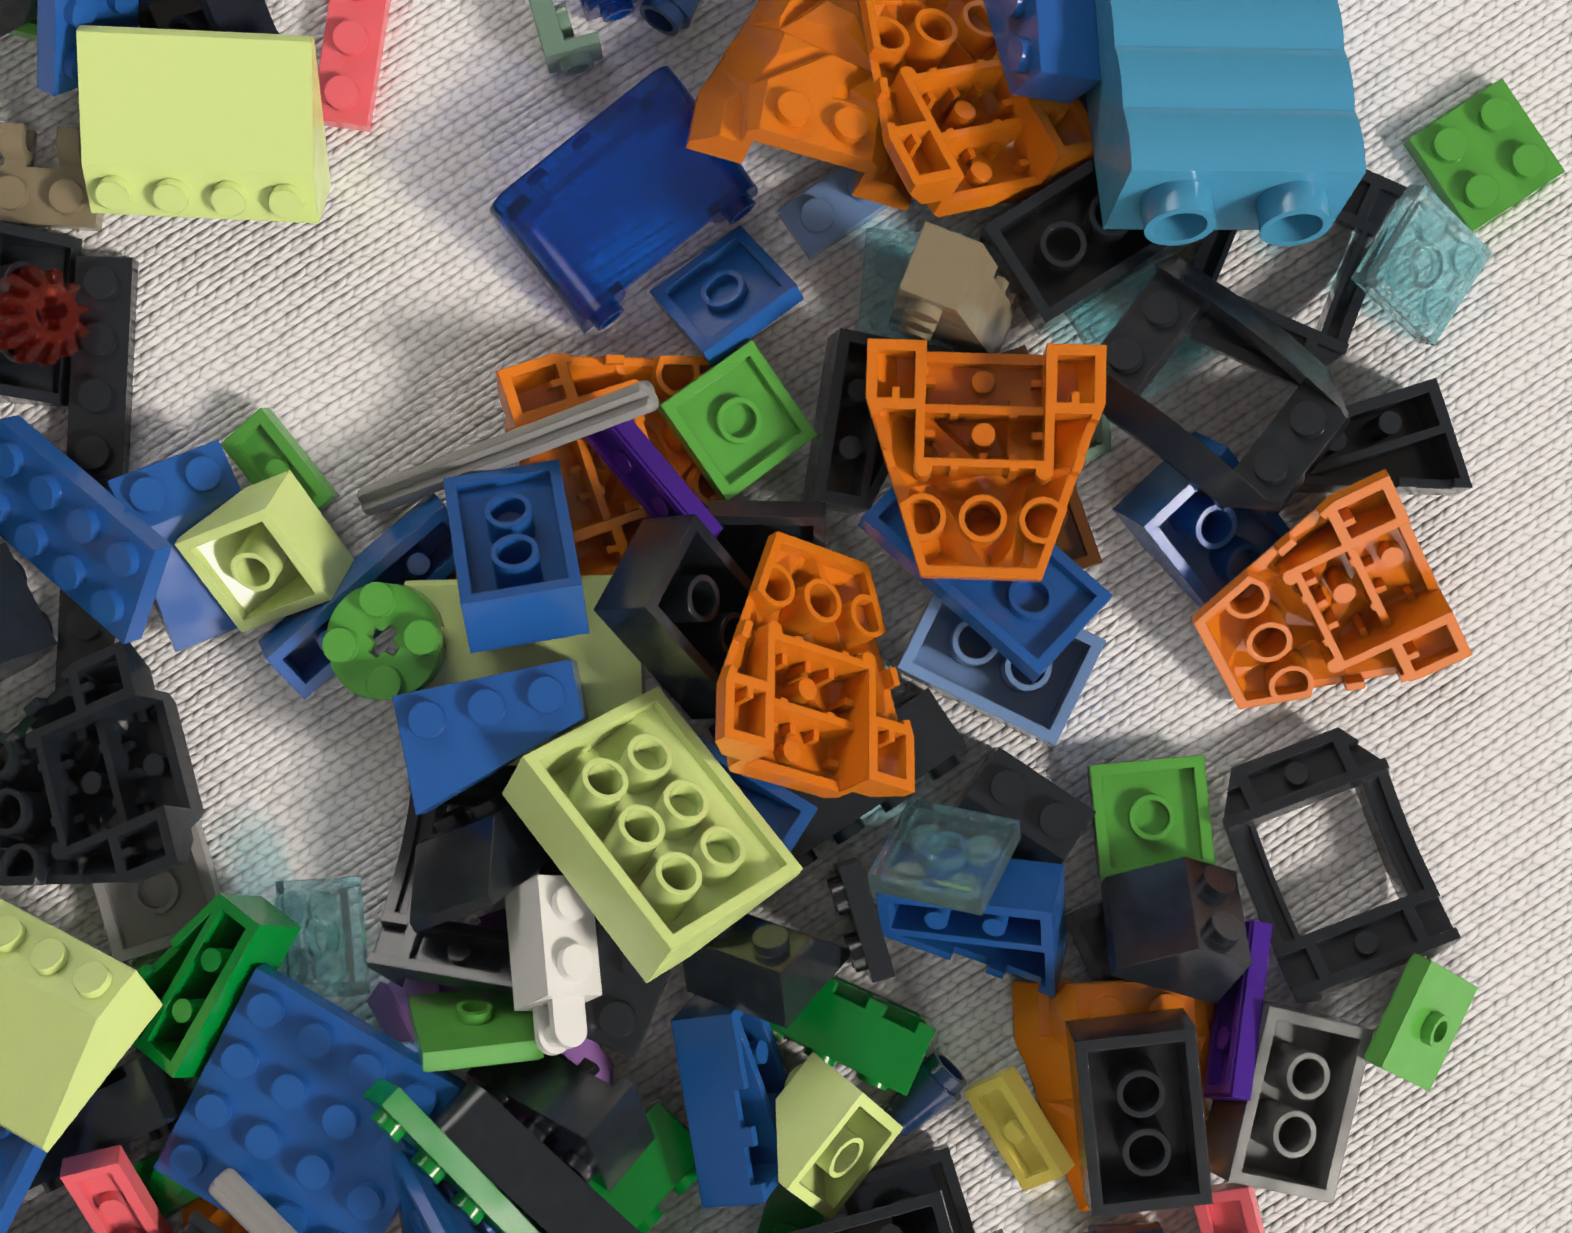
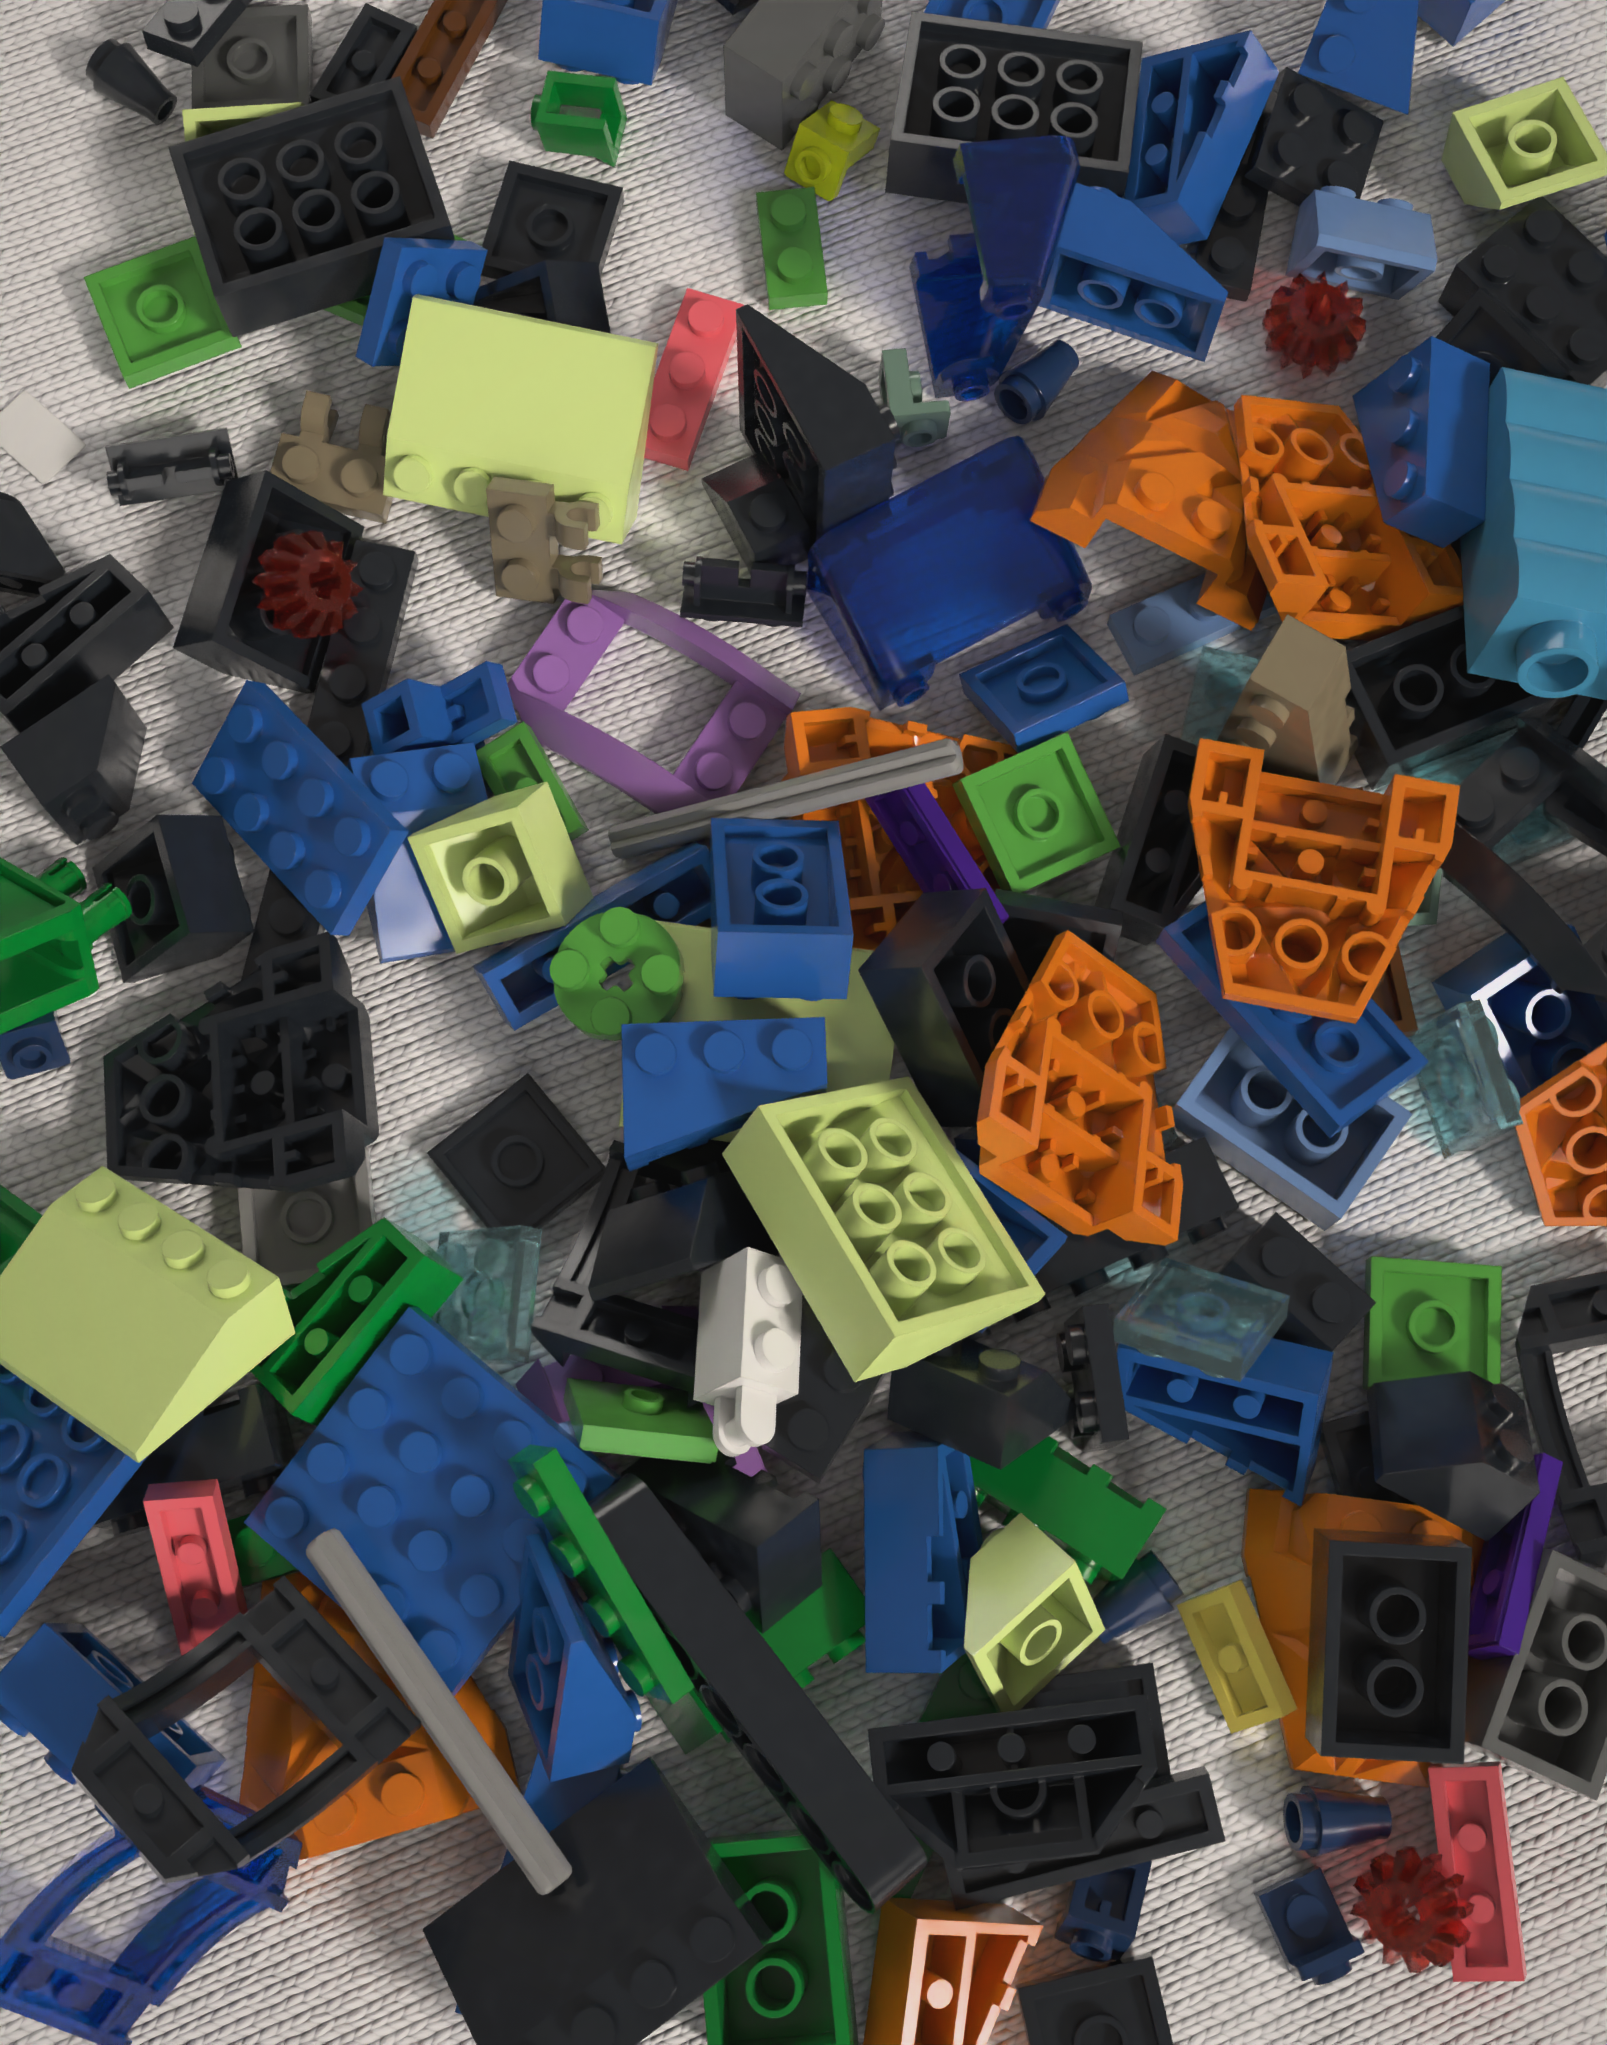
camera: 10 degrees right, 10 degrees down
(183, 418) = (431, 716): none -> blue brick
(244, 237) = (525, 541): none -> dark tan plate
(332, 806) = (518, 1159): none -> black tile
(440, 168) = (759, 513): none -> black slope
(449, 394) = (722, 751): none -> medium lavender wedge
(455, 250) = (770, 597): none -> black hinge
(476, 100) = (812, 424): none -> black slope
(1149, 599) = (1465, 1080): none -> clear light blue plate

